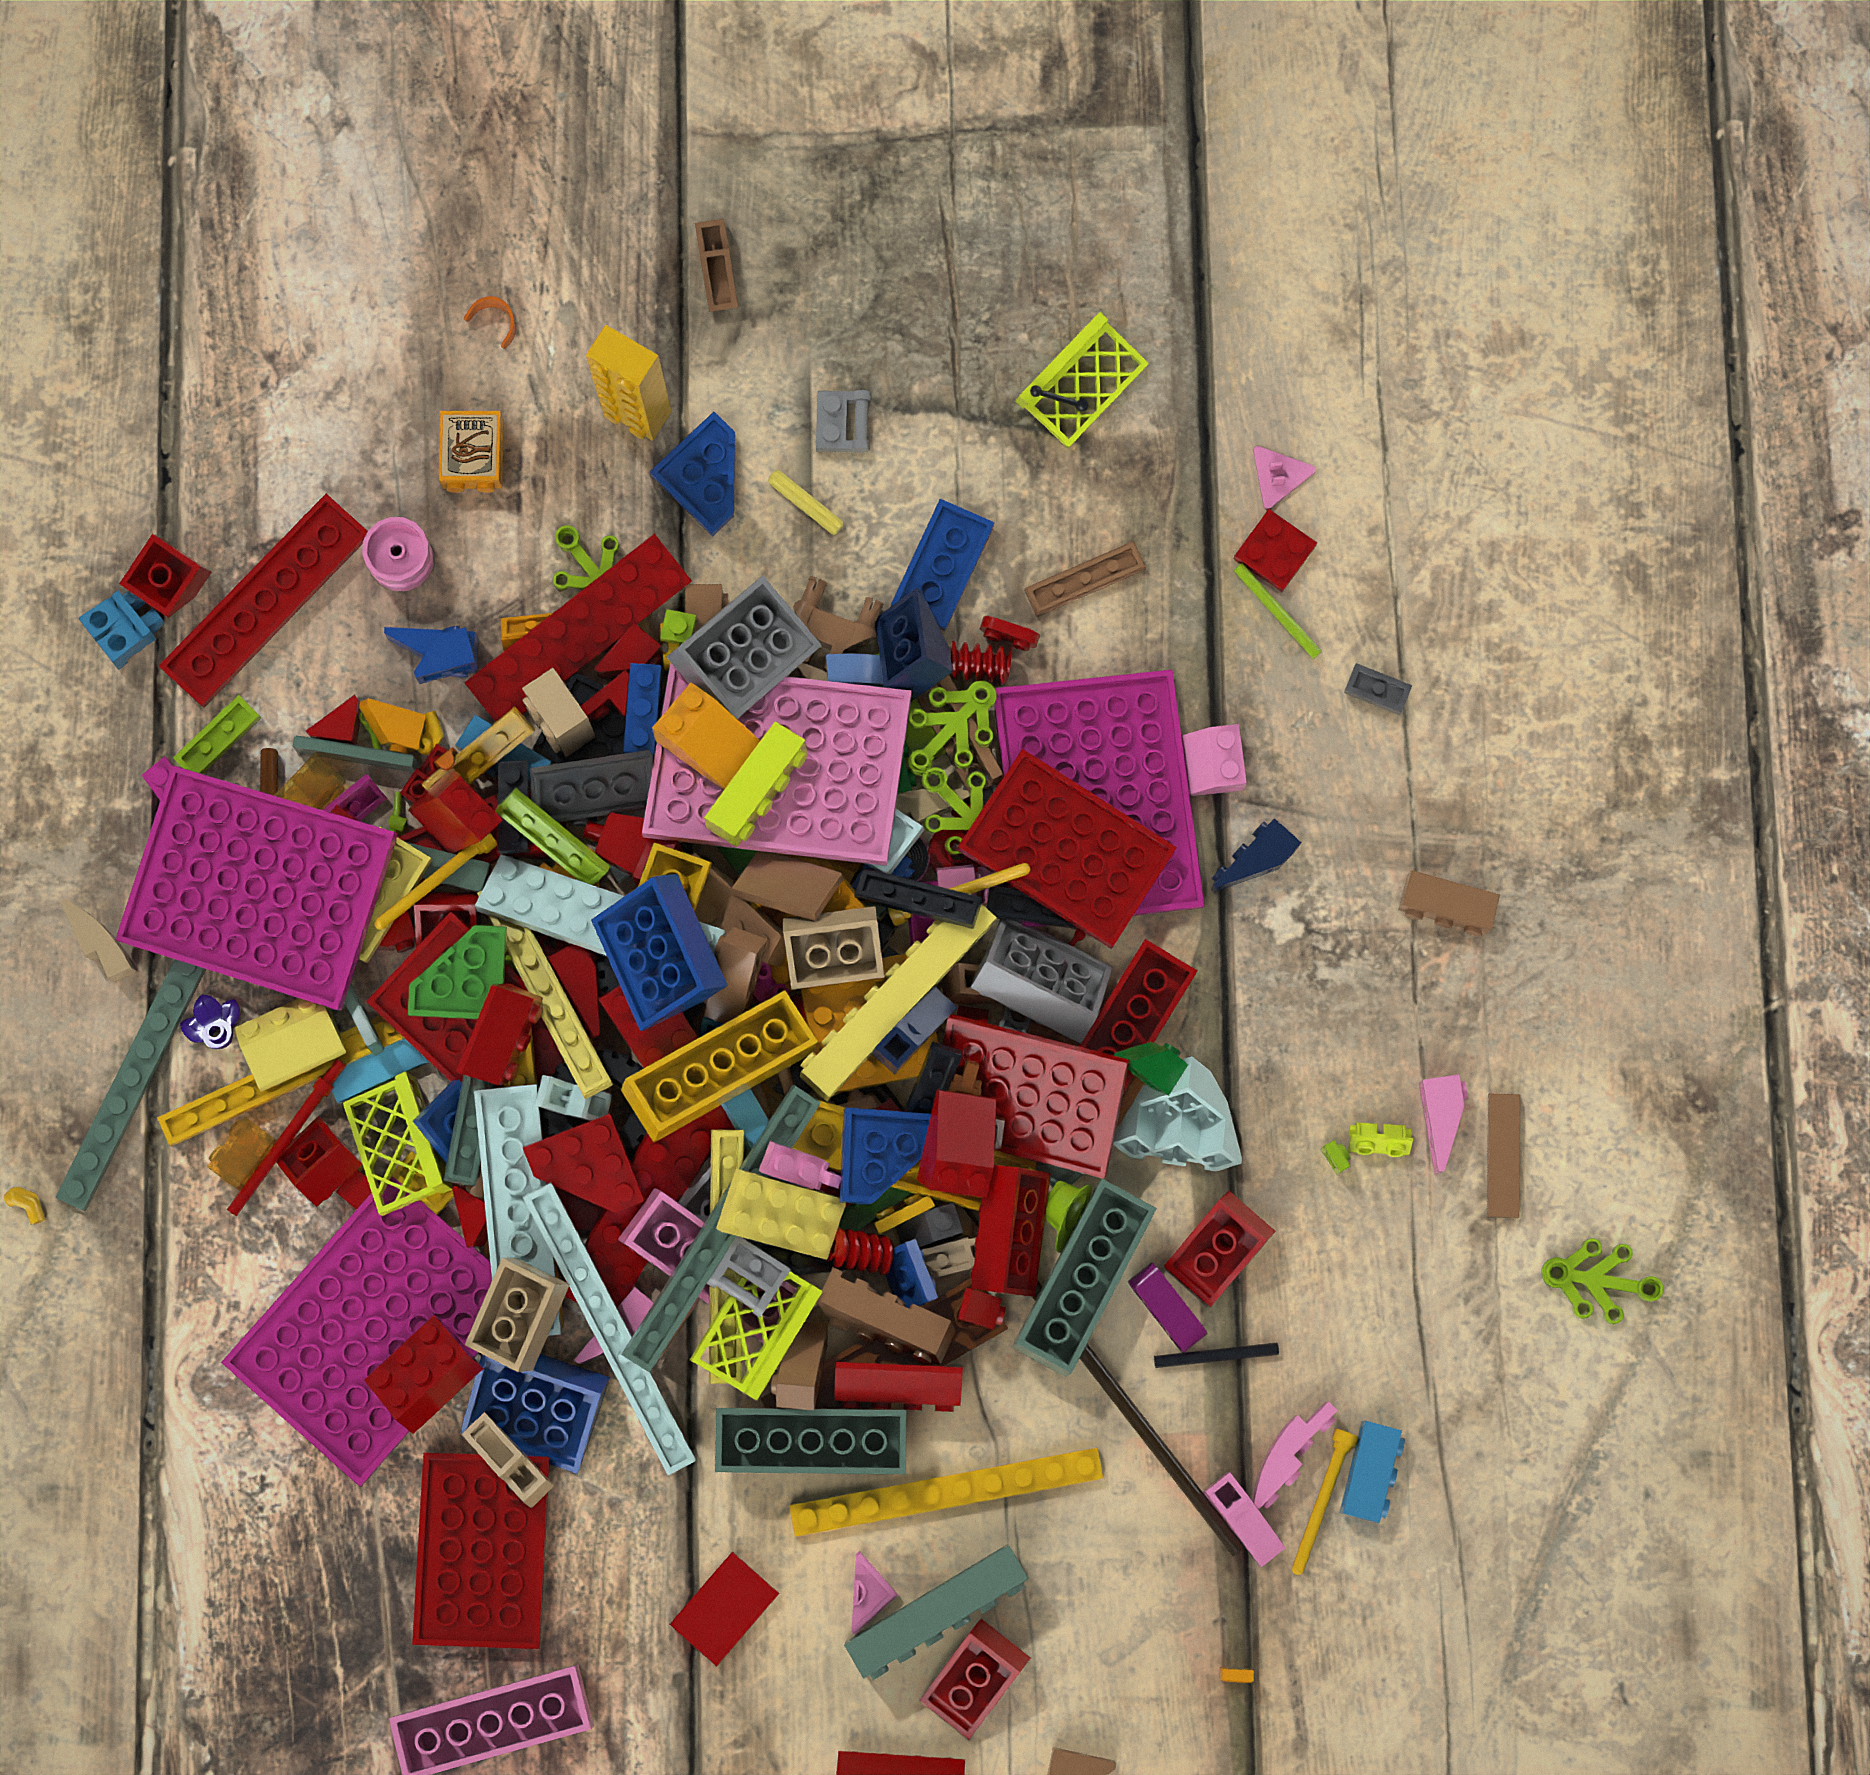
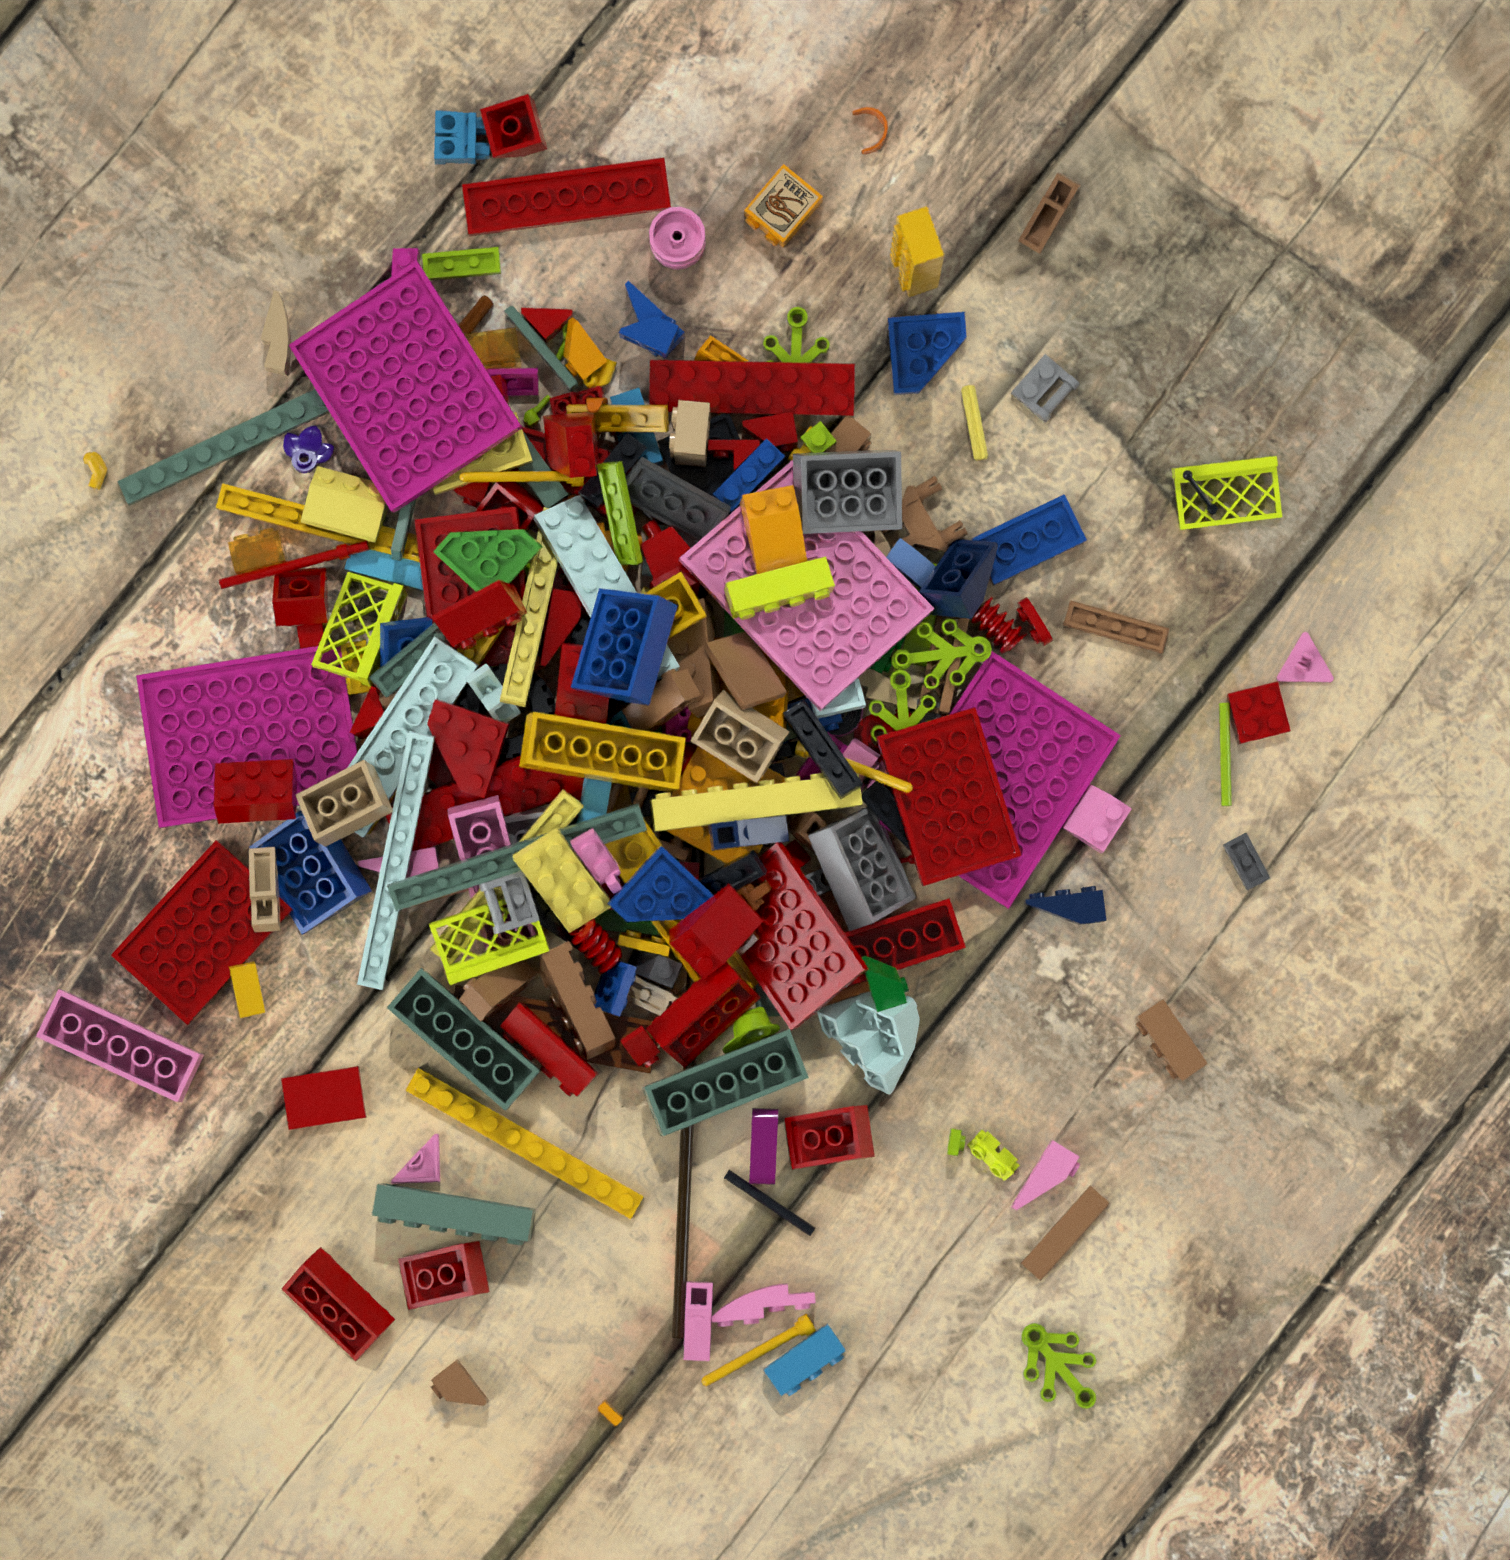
camera: 45 degrees right, 5 degrees up
(568, 1568) = (247, 989): none -> yellow tile

